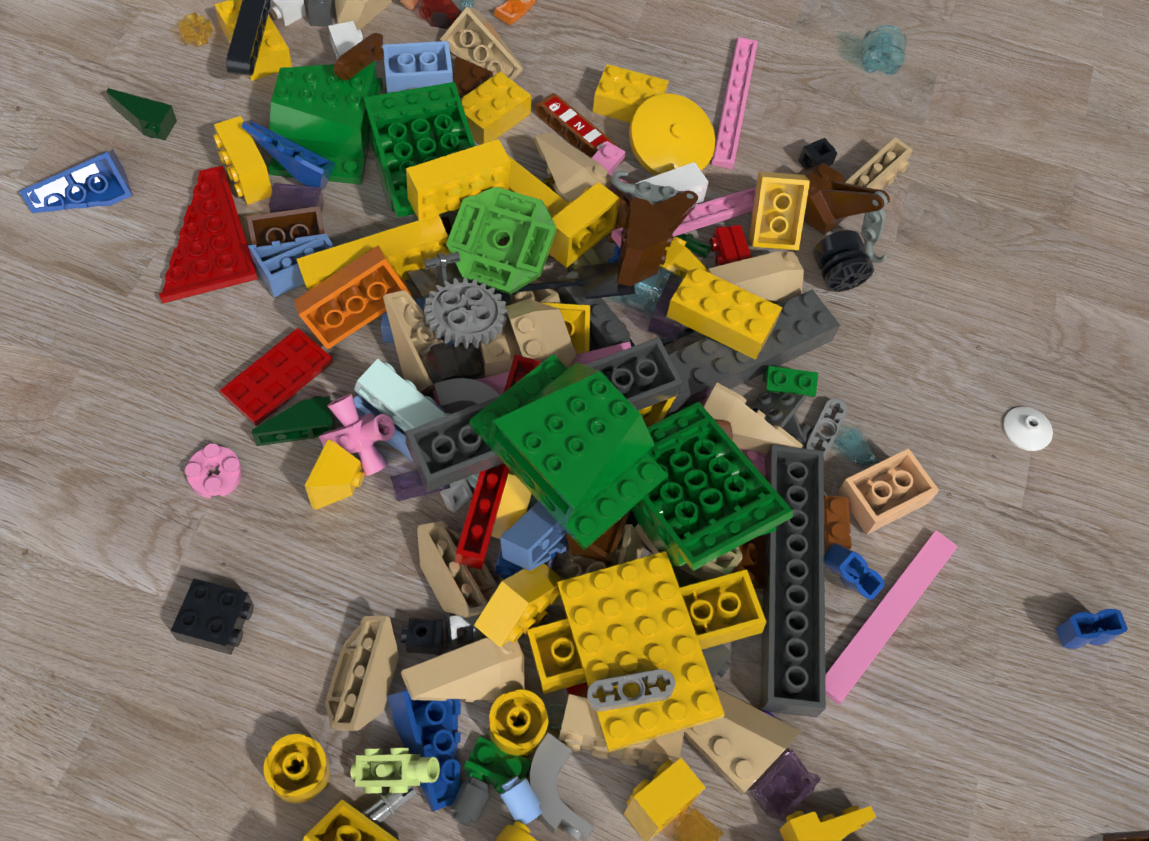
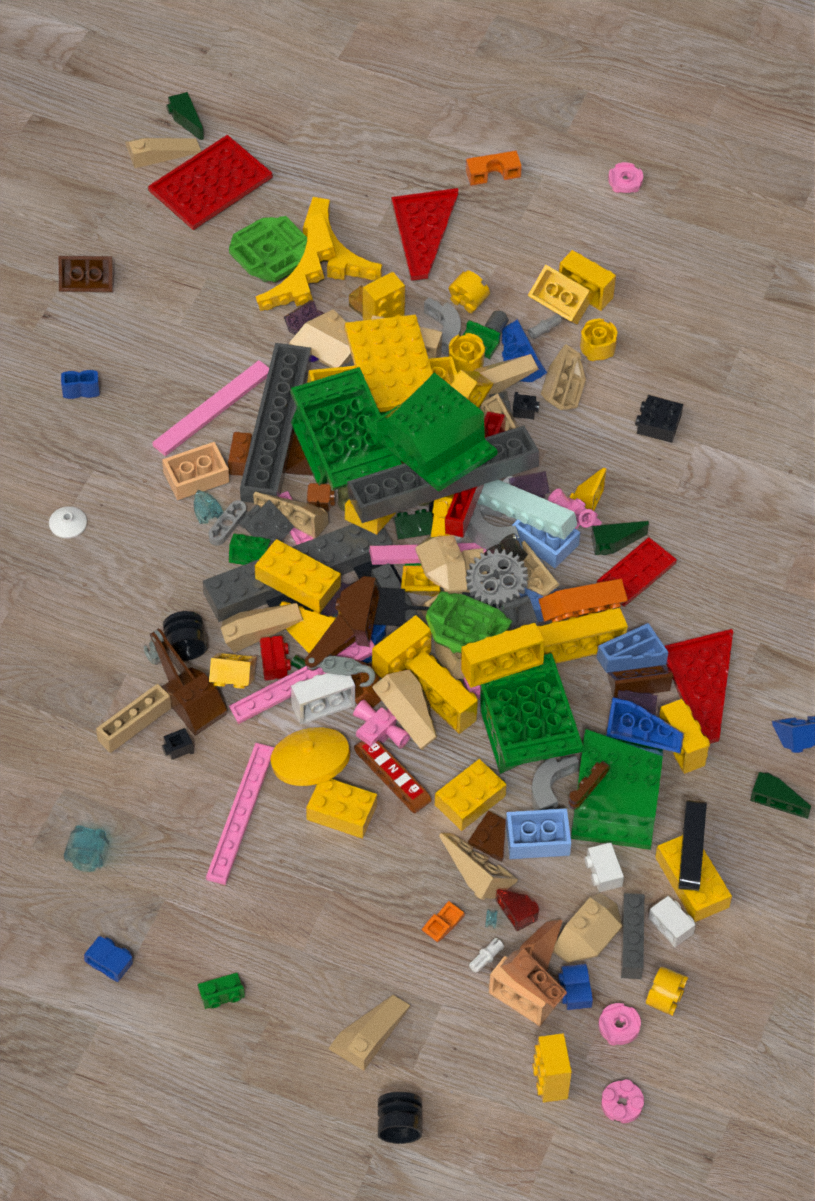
camera: 170 degrees left, 5 degrees down
(187, 33) = (747, 880): clear yellow brick -> none
(213, 485) = (676, 503): bright pink plate -> none
(393, 770) = (542, 332): yellowish green brick -> none
(520, 800) = (467, 310): light blue brick -> none
(654, 693) = (386, 329): light grey beam -> none
(853, 571) = (236, 418): blue brick -> none

